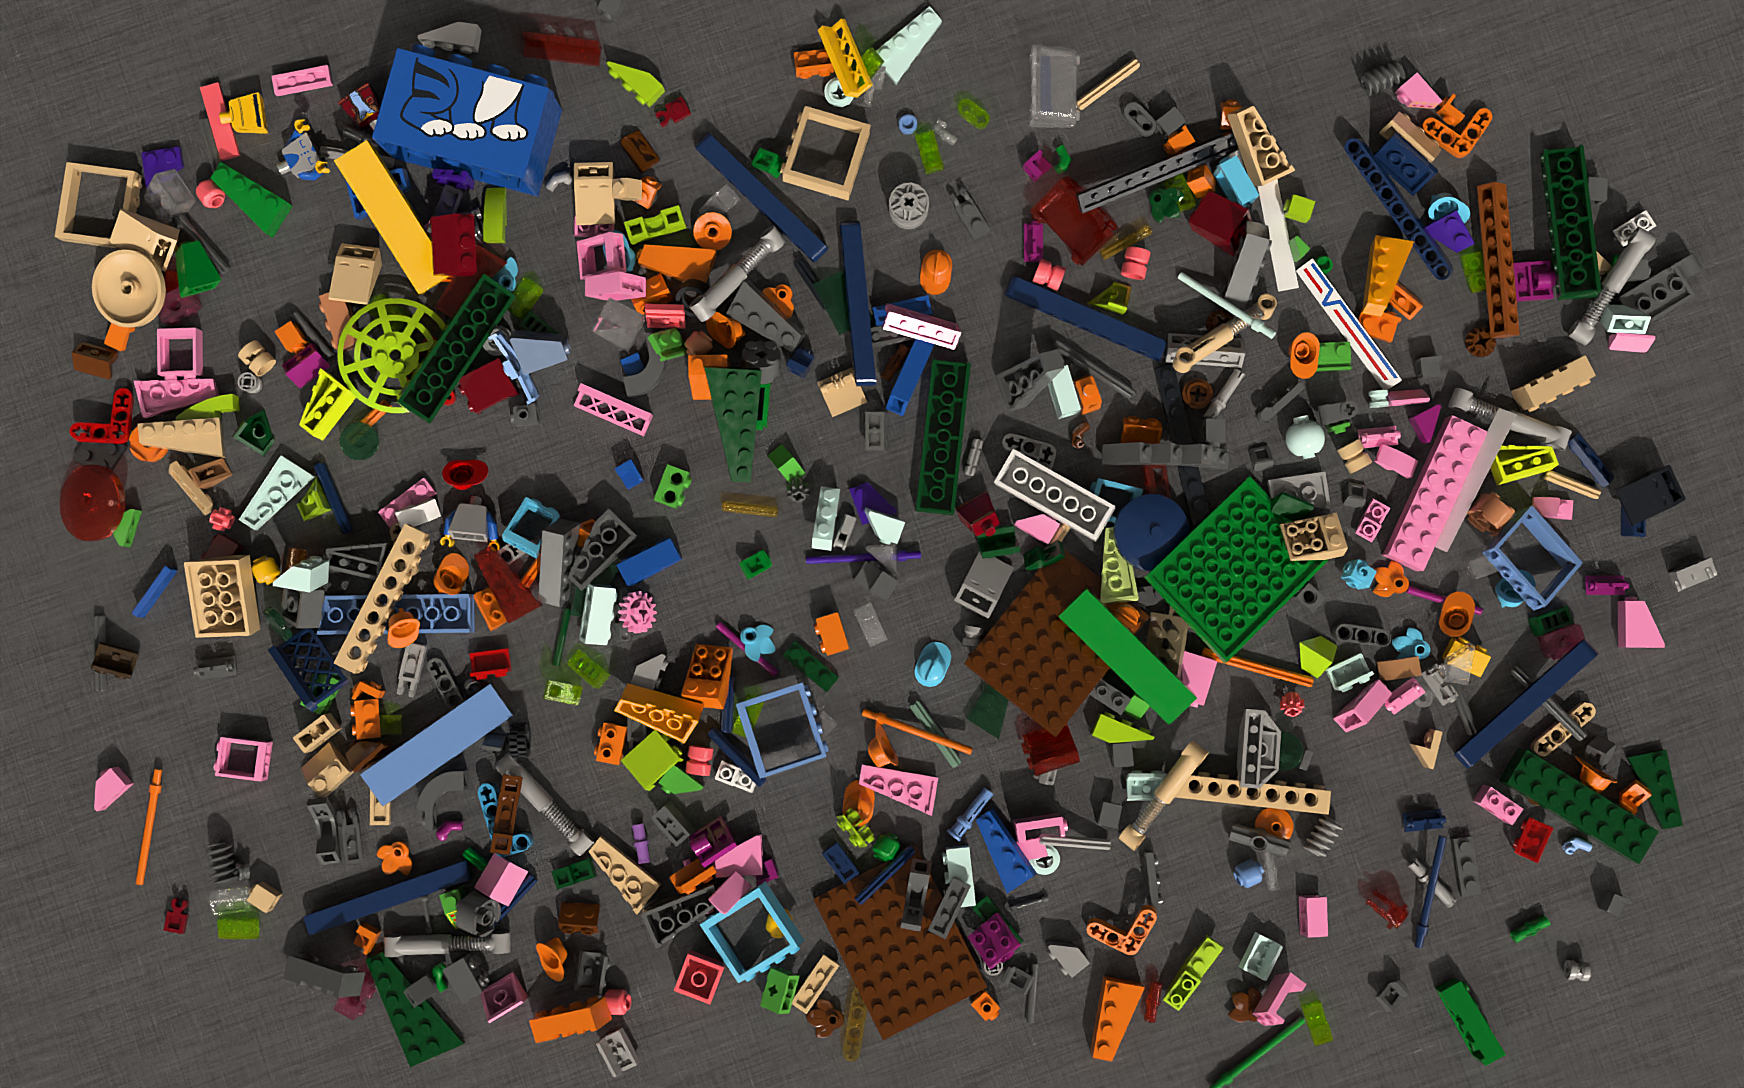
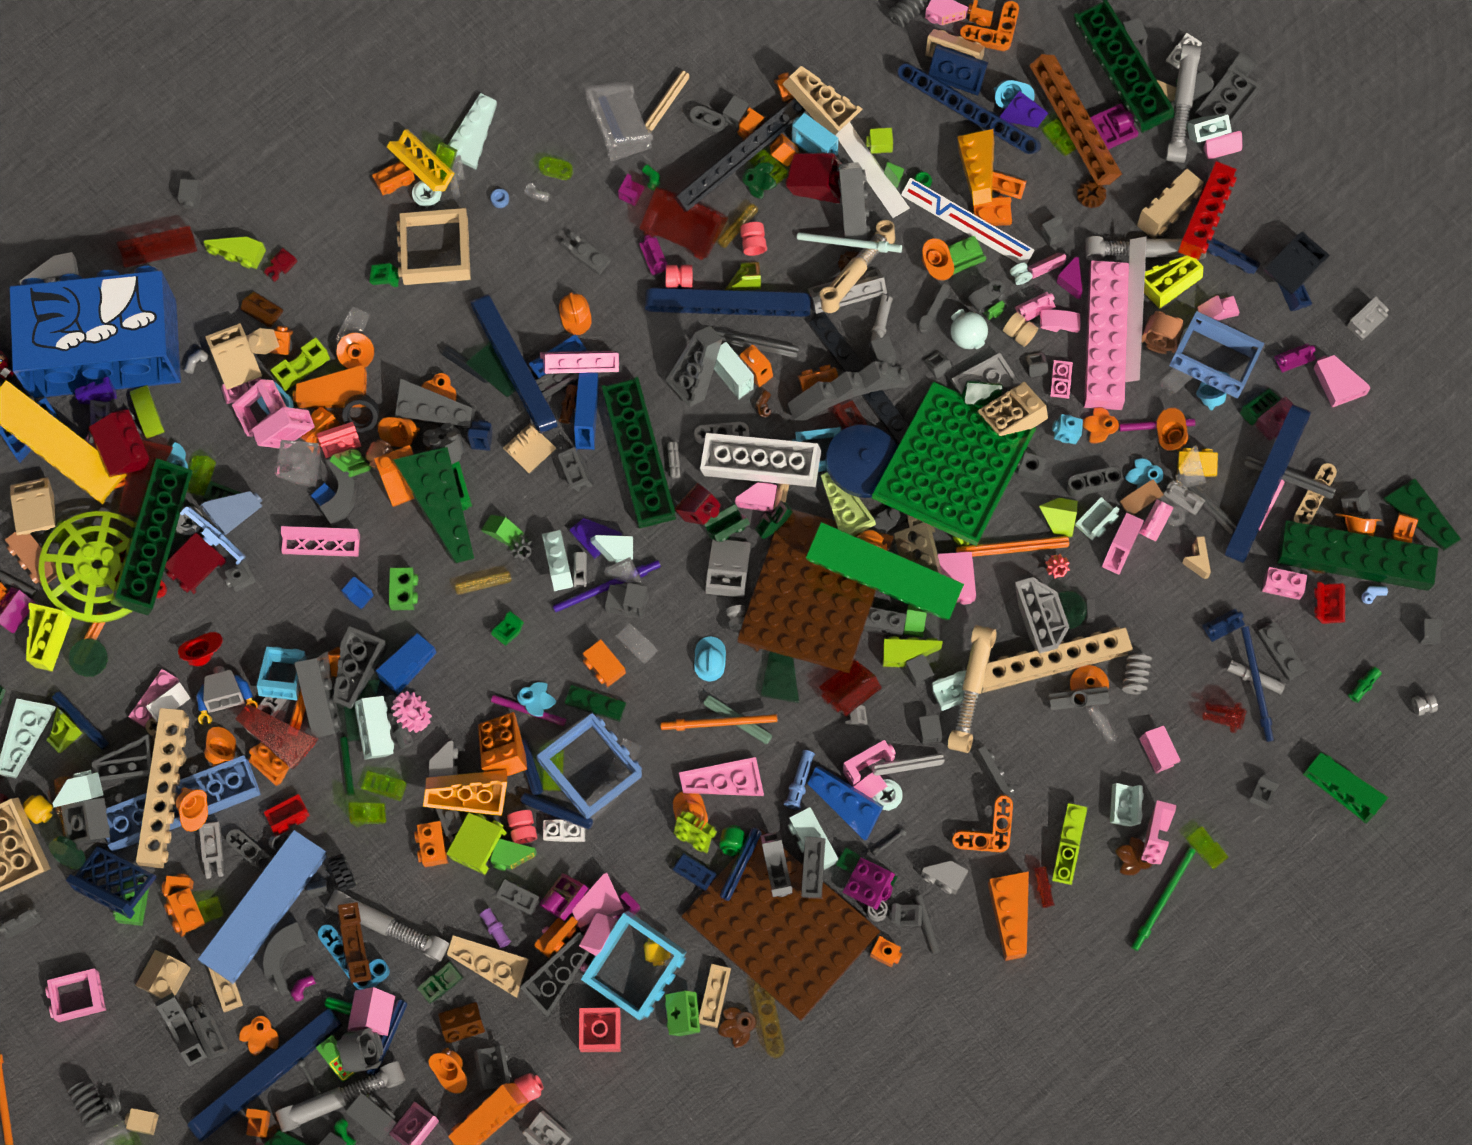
camera: 20 degrees left, 15 degrees down
(317, 733) = (141, 941): tan brick -> none
(365, 752) = (196, 940): reddish brown slope -> none
(706, 304) = (374, 408): light grey piece -> none
(761, 197) = (389, 307): dark blue beam -> none
(881, 749) = (690, 752): orange piece -> none
(907, 216) = (528, 272): light grey wheel -> none
(929, 152) = (528, 214): clear neon green slope -> none
(1204, 389) = (861, 323): reddish brown gear -> none
(1248, 873) = (1082, 733): medium blue head -> none
(1572, 484) = (1227, 283): tan axle -> none
(1607, 384) = (1207, 211): none -> red brick

